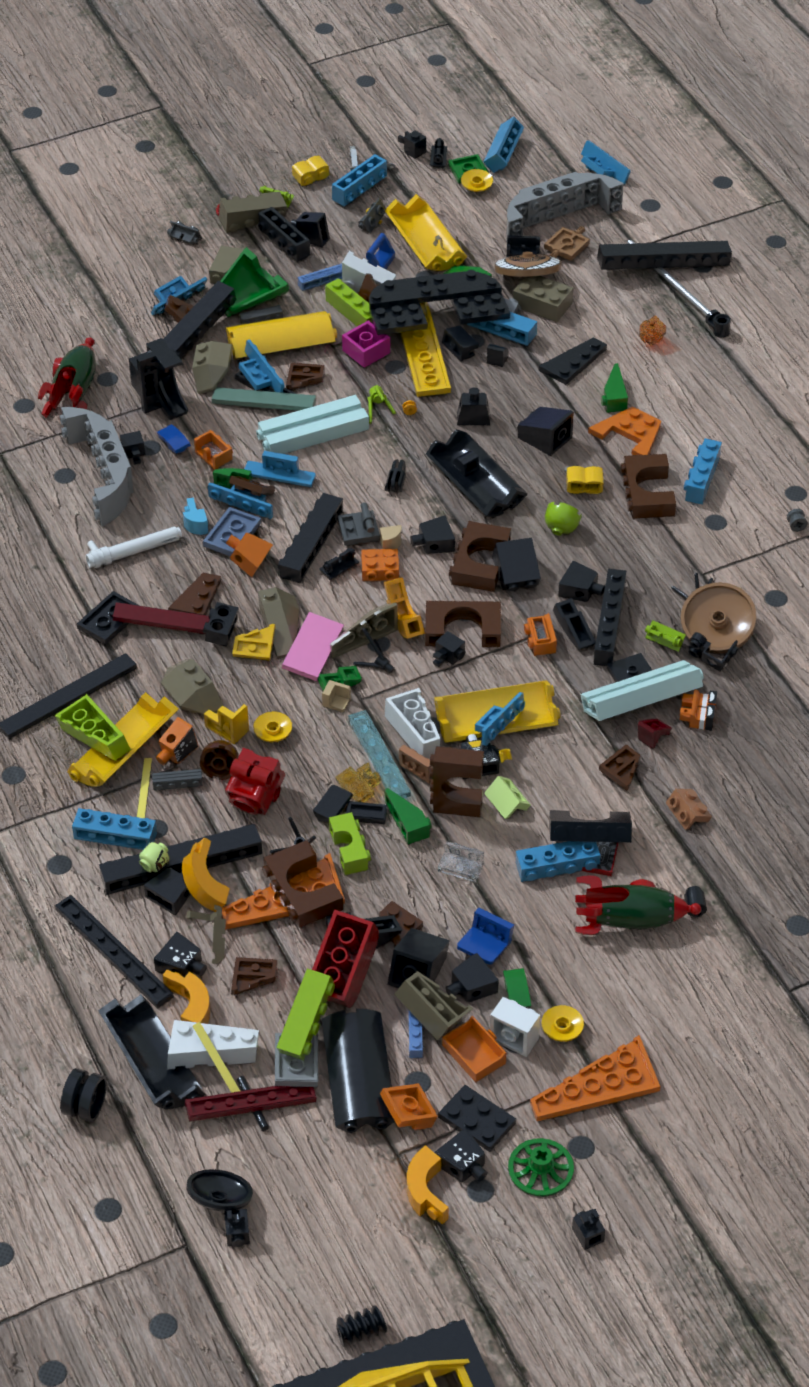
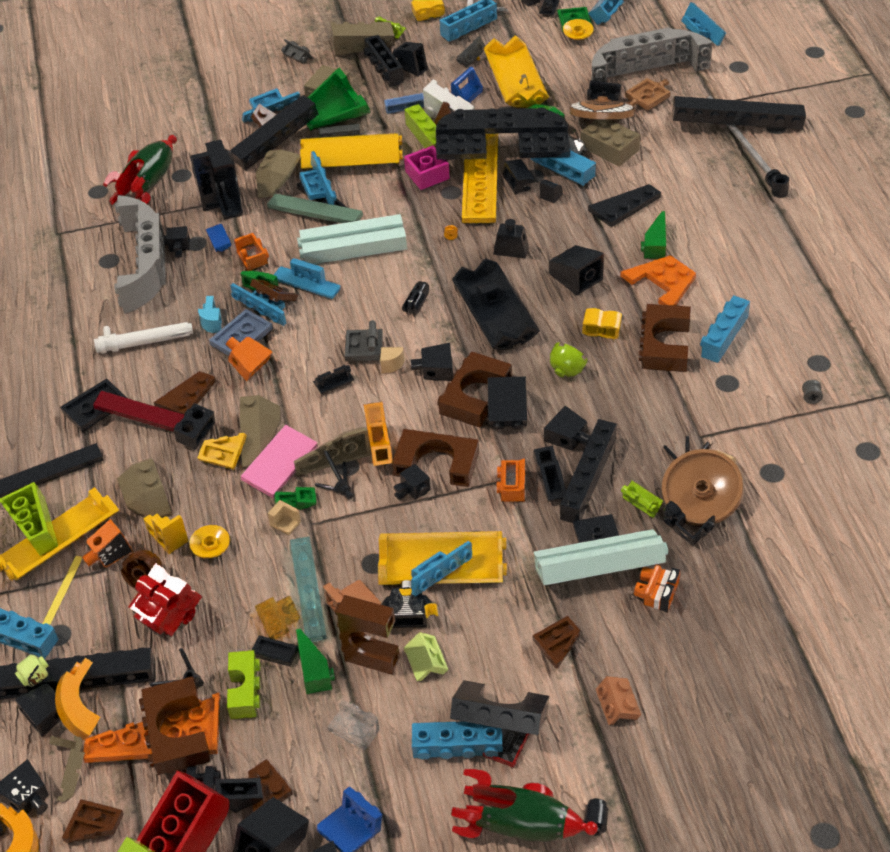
camera: 15 degrees right, 0 degrees up
(177, 779) = (96, 584): dark grey piece -> none
(304, 375) = (360, 190): reddish brown wing -> none
(310, 538) = (313, 349): black brick -> none
(332, 803) = (240, 635): black slope -> none
(377, 396) = (423, 218): lime plant -> none
(380, 564) = (373, 385): orange plate -> none
(413, 722) = (349, 555): white wedge -> none
(651, 730) = (600, 602): dark red slope -> none
(652, 330) = (708, 183): clear orange brick -> none

